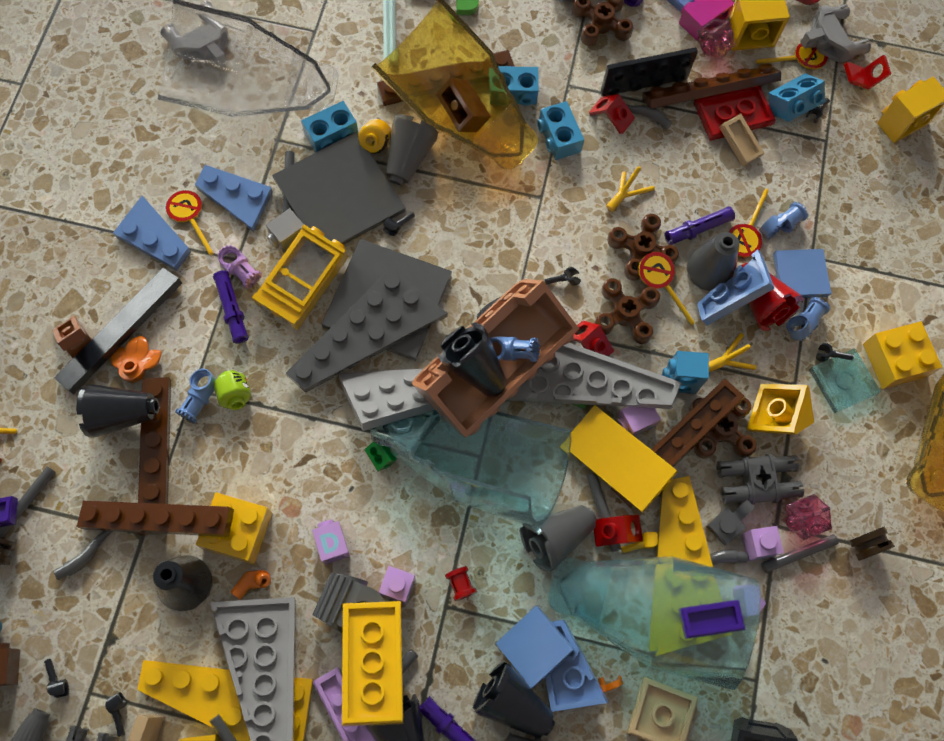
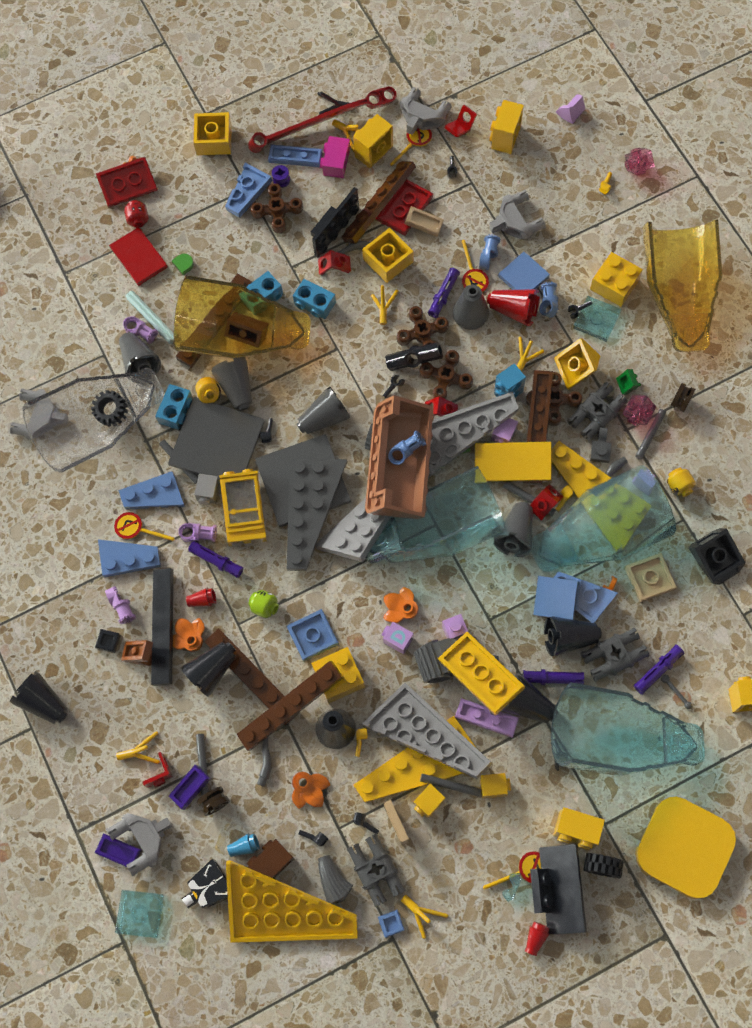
camera: 30 degrees left, 0 degrees up
(58, 300) = (107, 641): none -> black tile
(97, 628) = (311, 791): none -> orange plate
(101, 267) = (122, 606): none -> lavender connector
(183, 335) = (202, 598): none -> red cone
(197, 395) = (246, 624): medium blue connector -> none
(200, 612) = (360, 735): none -> yellow hand
(251, 580) = (371, 695): orange arm -> none
(252, 464) = (312, 635): none -> medium blue tile
(260, 70) = (101, 402): none -> black tyre
(340, 51) = (137, 354): none -> dark grey cone
(364, 507) = (398, 603): none -> orange plate
(368, 32) = (141, 329): none -> lavender connector
(380, 456) = (379, 572): green piece -> none
(460, 583) = (487, 599): red bush -> none
(467, 247) = (323, 413): none -> dark grey cone
(473, 358) = (392, 469): black cone -> none
(621, 268) = (424, 354): none -> black piece
(657, 272) = (448, 339): piece -> none
(673, 143) = (388, 255): none -> yellow brick
(711, 619) = (635, 501): dark purple tile -> none
(716, 38) = (357, 169): clear pink brick -> none
(745, 286) = (499, 313): medium blue wing -> none
(762, 543) = (627, 444): lavender brick -> none
(789, 637) = (681, 482): none -> yellow head
(797, 97) = (434, 170): dark azure brick -> none
(821, 475) = (627, 381): none -> green tile
(836, 208) = (512, 221): none -> light grey connector

